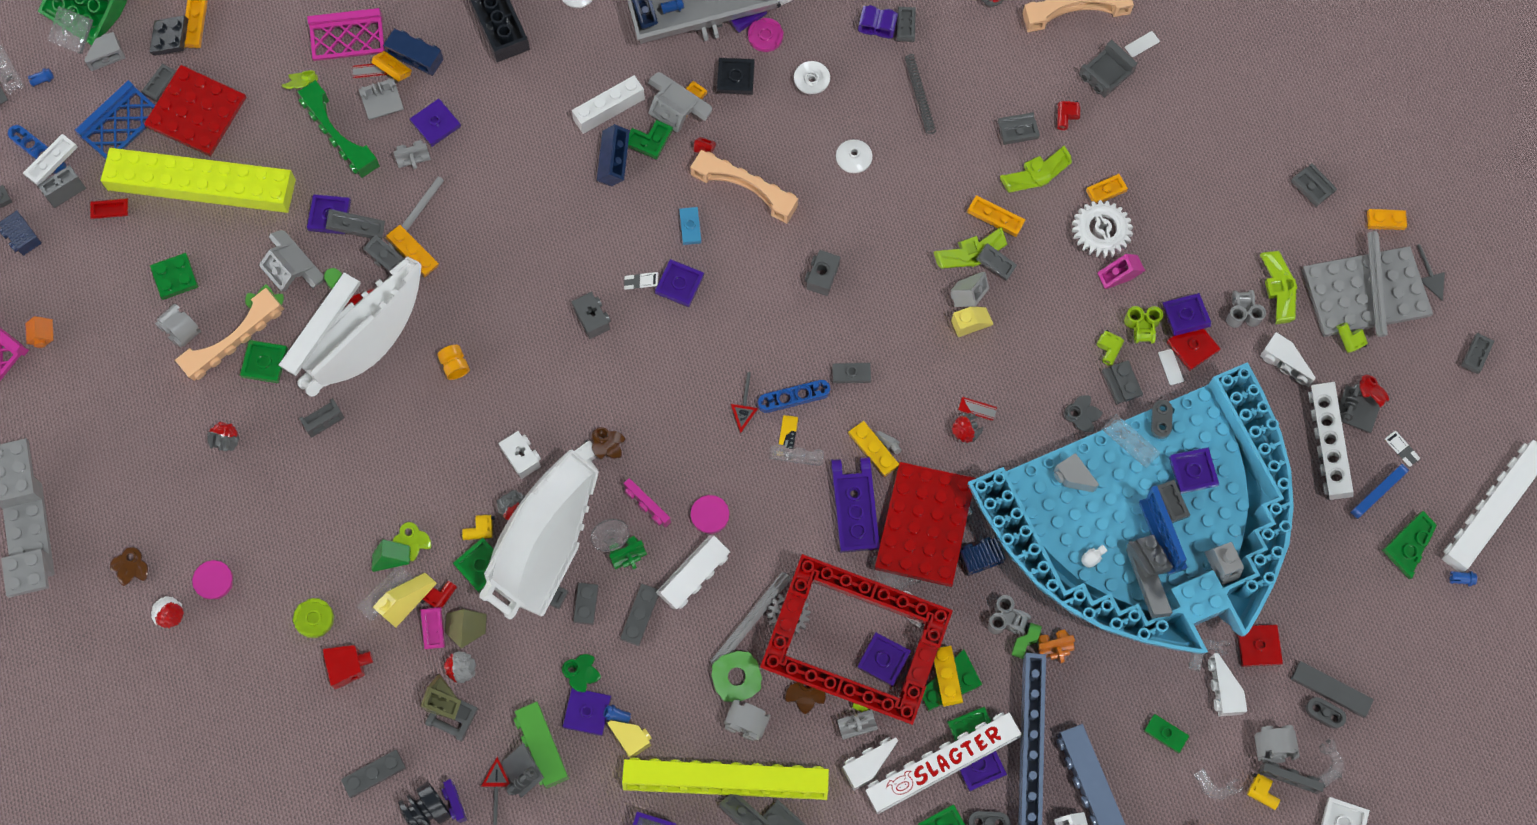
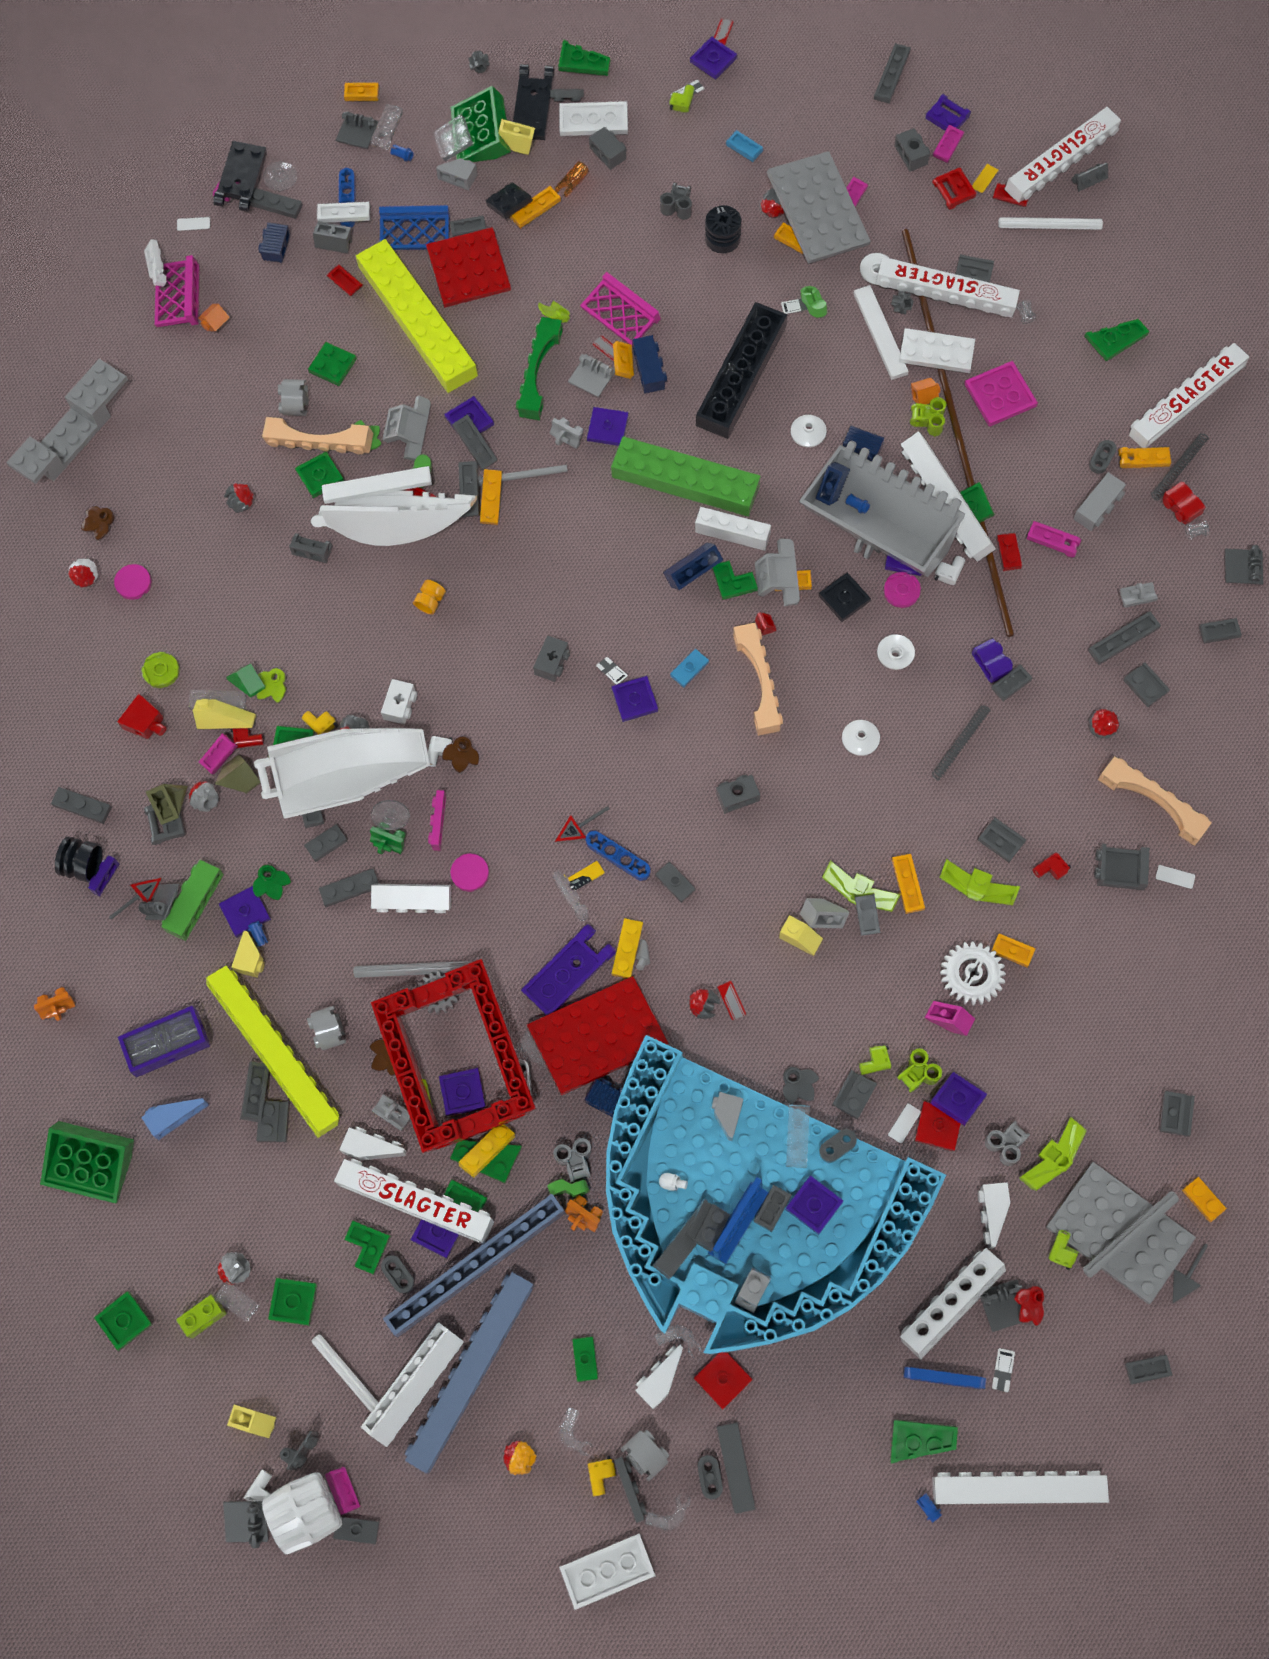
camera: 55 degrees right, 0 degrees up
(533, 101) = (685, 476): none -> bright green brick
(752, 676) = (342, 998): bright green piece -> none

